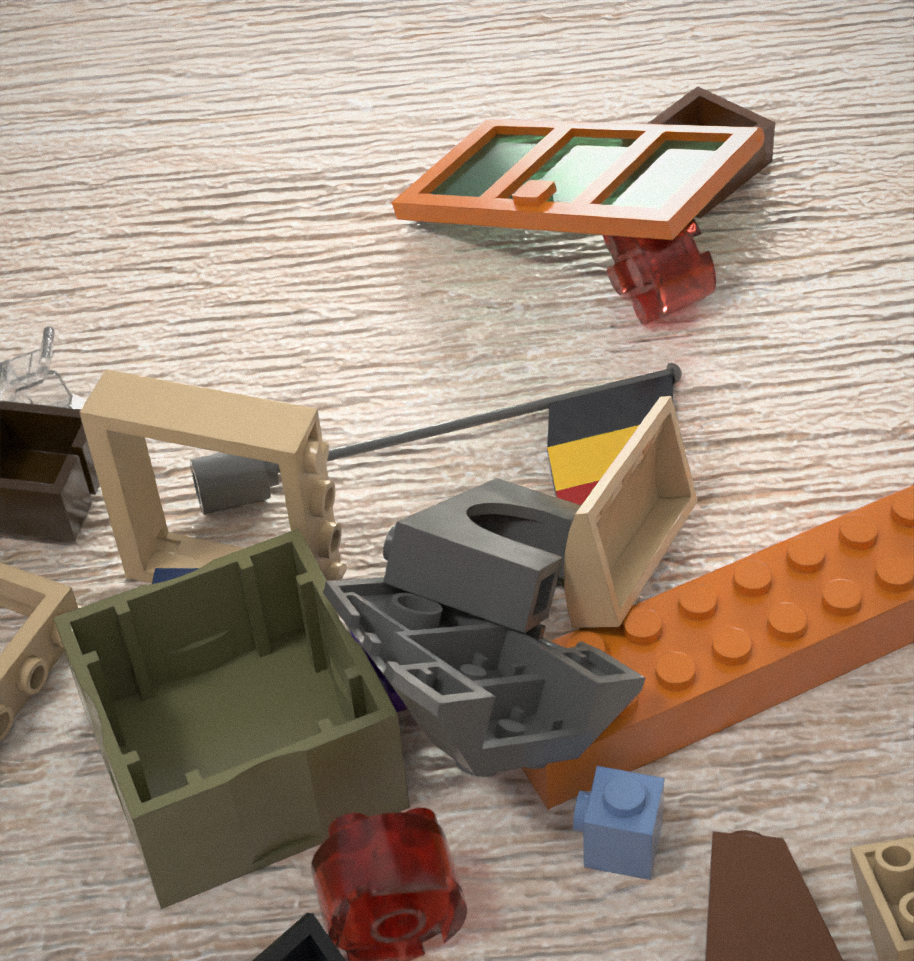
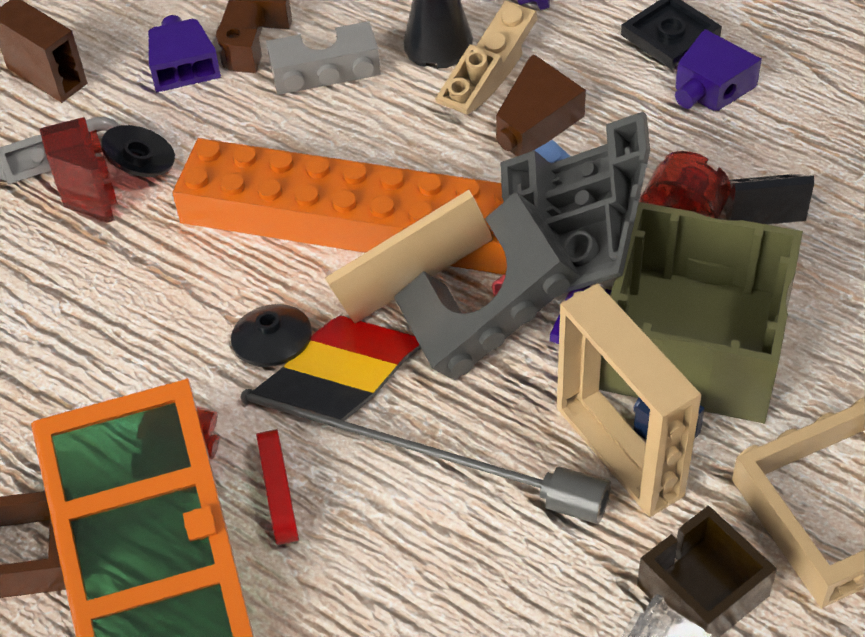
camera: 140 degrees left, 5 degrees up
(567, 326) = (277, 487): none -> red beam
(731, 440) = (271, 335): none -> black dish

